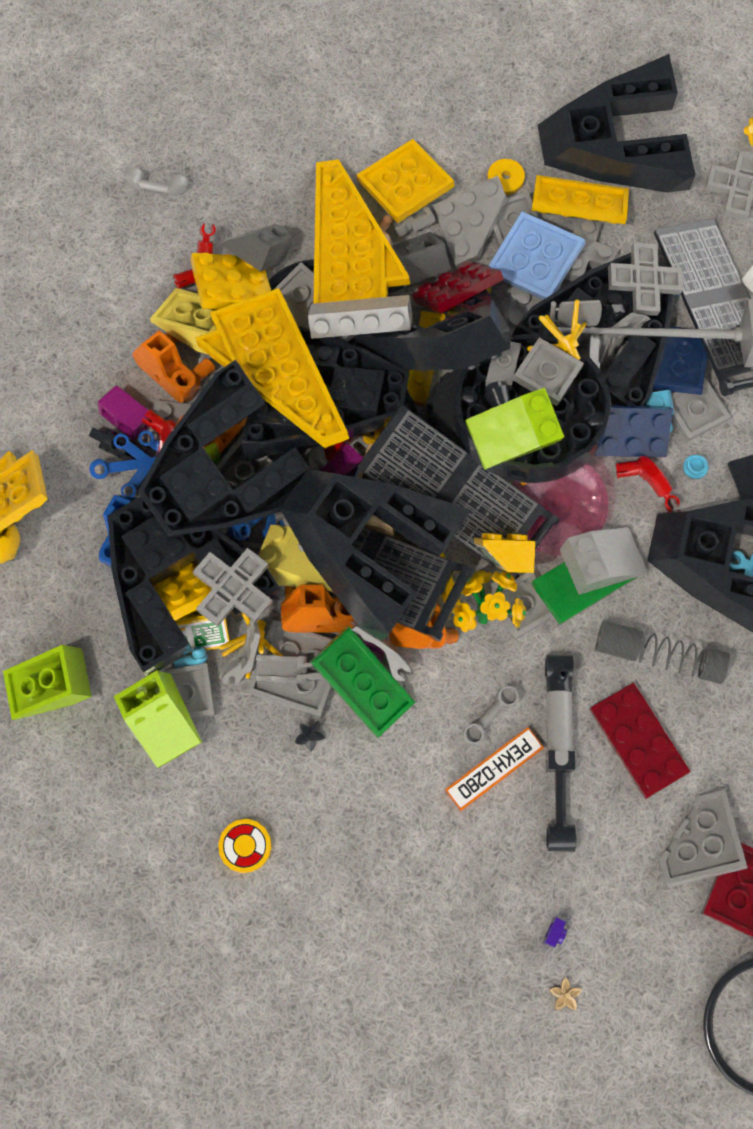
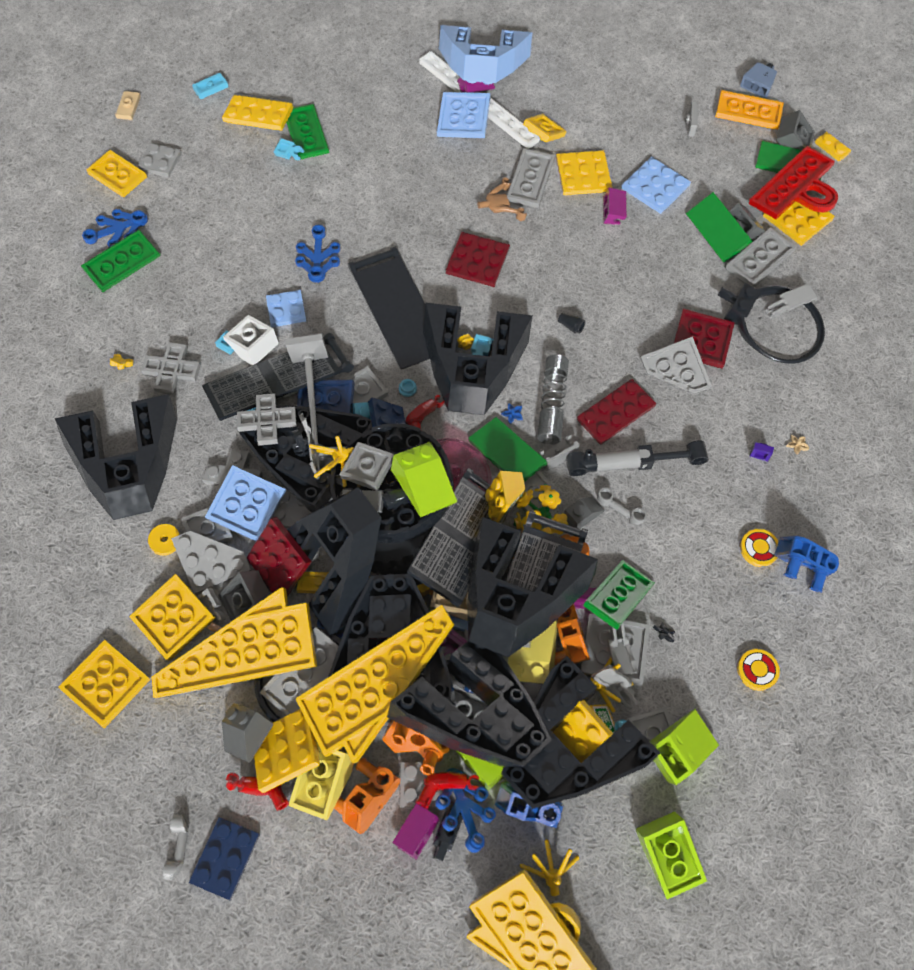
camera: 100 degrees left, 10 degrees down
(50, 548) = (552, 876): none -> yellow plant
(136, 227) = (224, 858): none -> dark blue plate
(232, 587) = (578, 687): light grey plate -> none
(340, 116) = (104, 683): none -> yellow plate
(360, 316) = (322, 622): light grey brick -> none
(390, 933) = (804, 552): none -> blue piece
(394, 657) = (601, 572): light grey arm -> none
(410, 893) = (759, 547): none -> tile
(487, 663) = (583, 512): none -> dark grey slope
(494, 769) = (658, 501): tile -> none
(578, 644) = (558, 453): none -> light grey hinge
(580, 199) = (188, 479): yellow plate -> none
(602, 559) = (494, 439): light grey slope -> none
(647, 599) = (513, 413): none -> blue plant

